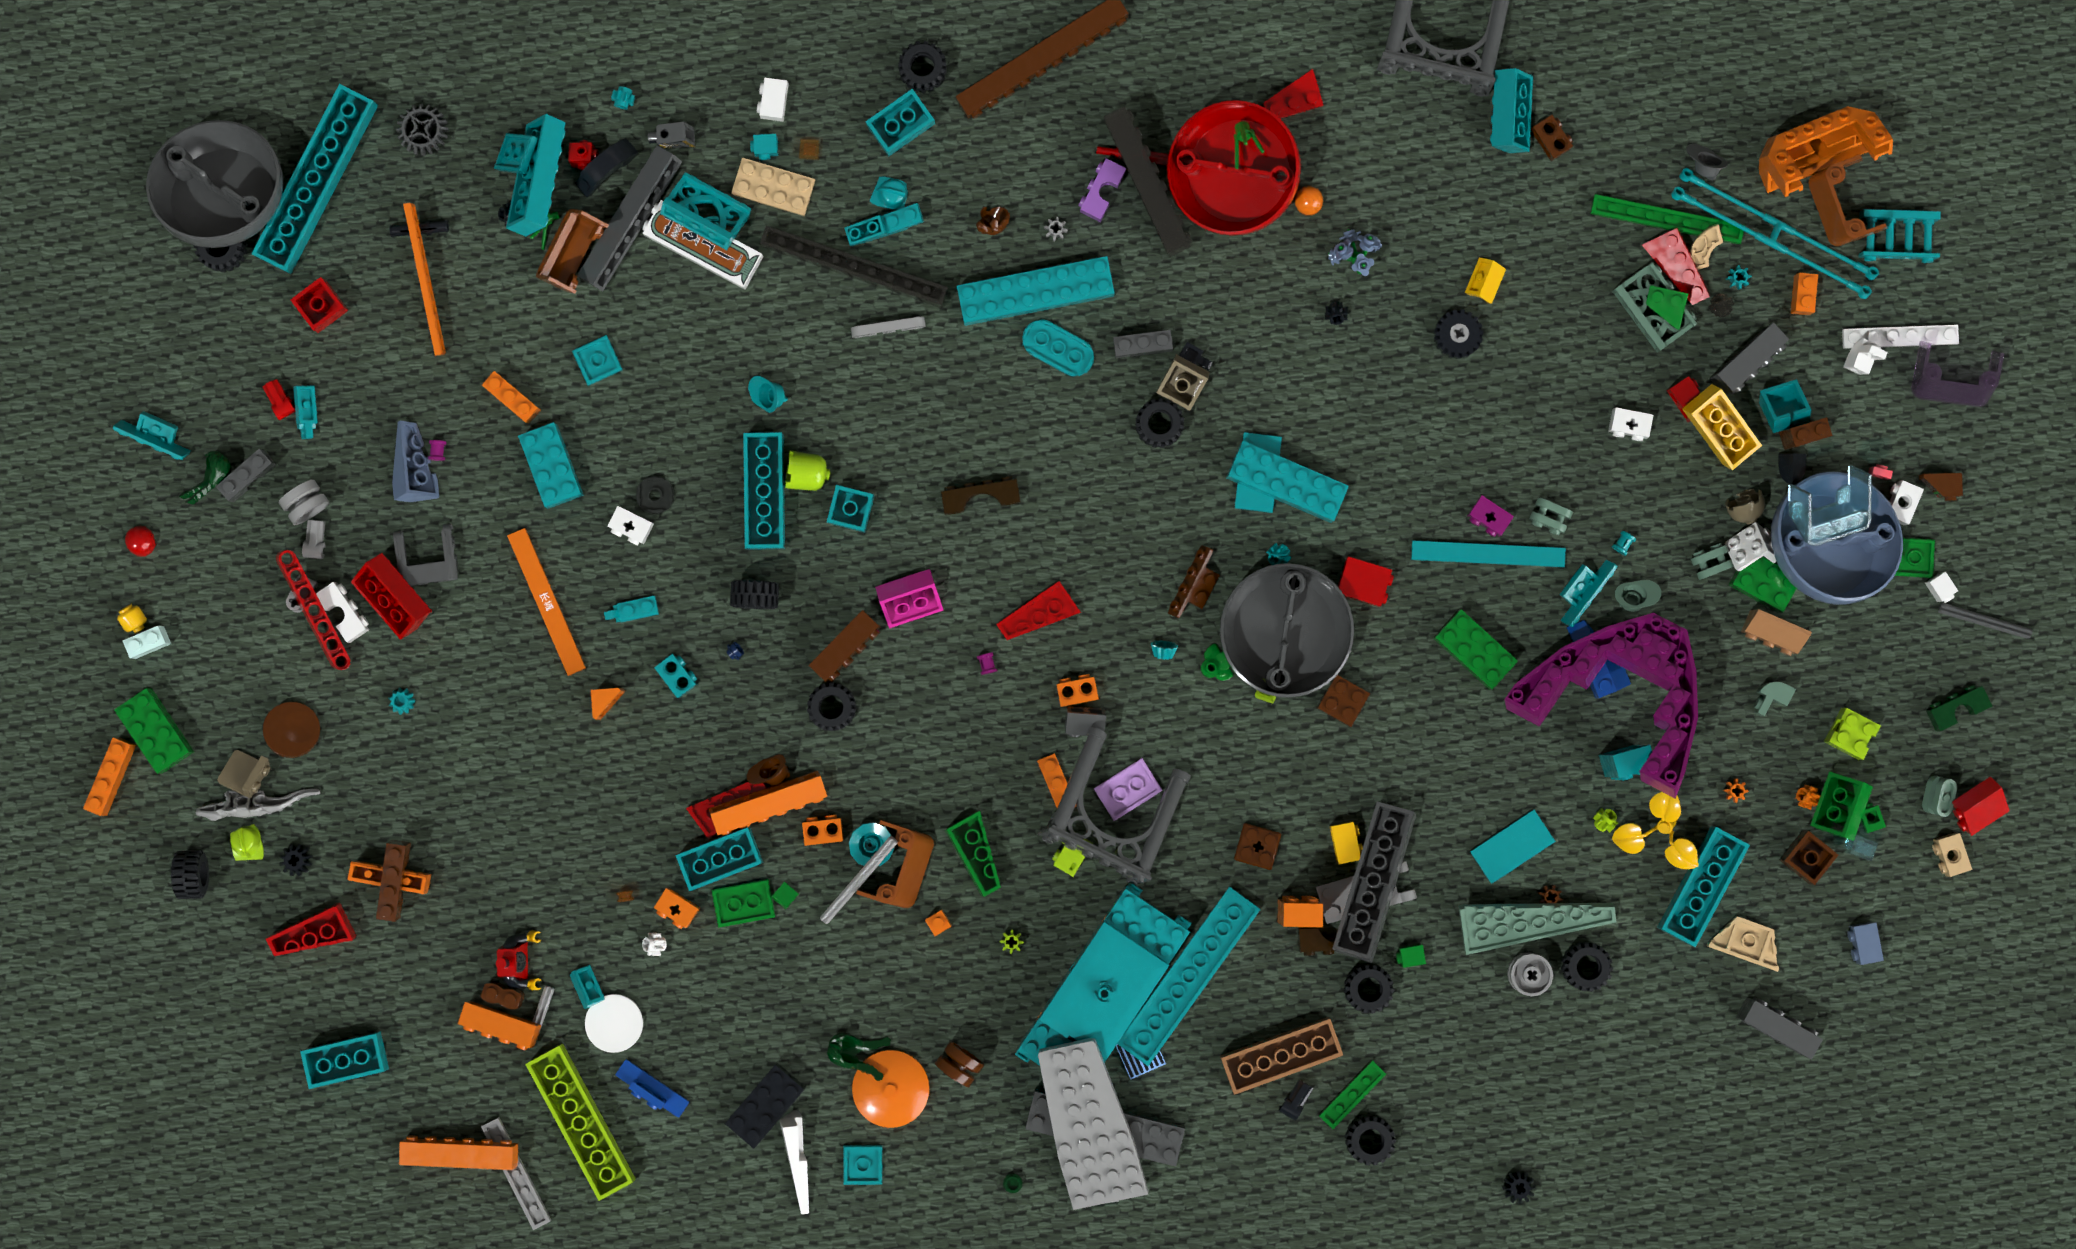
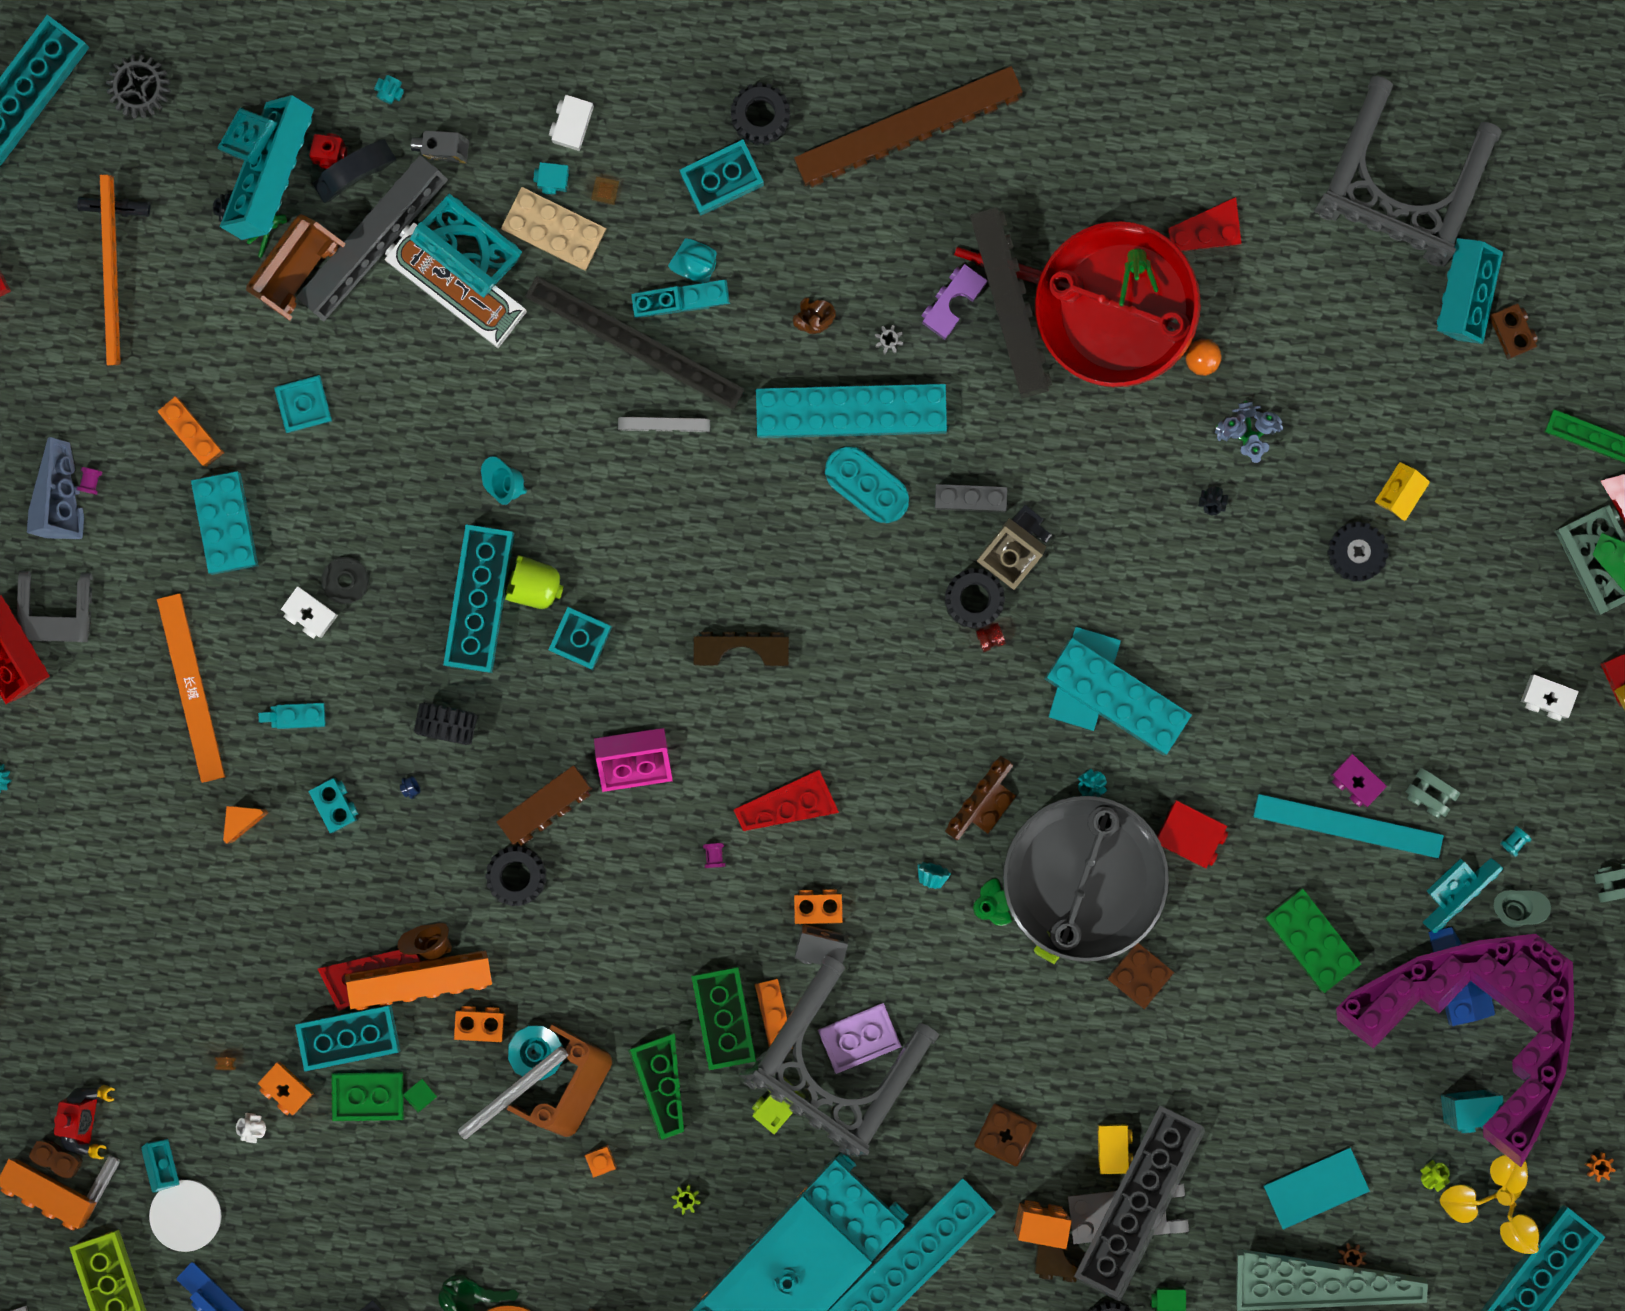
camera: 10 degrees right, 0 degrees up
(1017, 791) = (723, 1018): none -> green brick
(1181, 449) = (995, 635): none -> clear red wheel

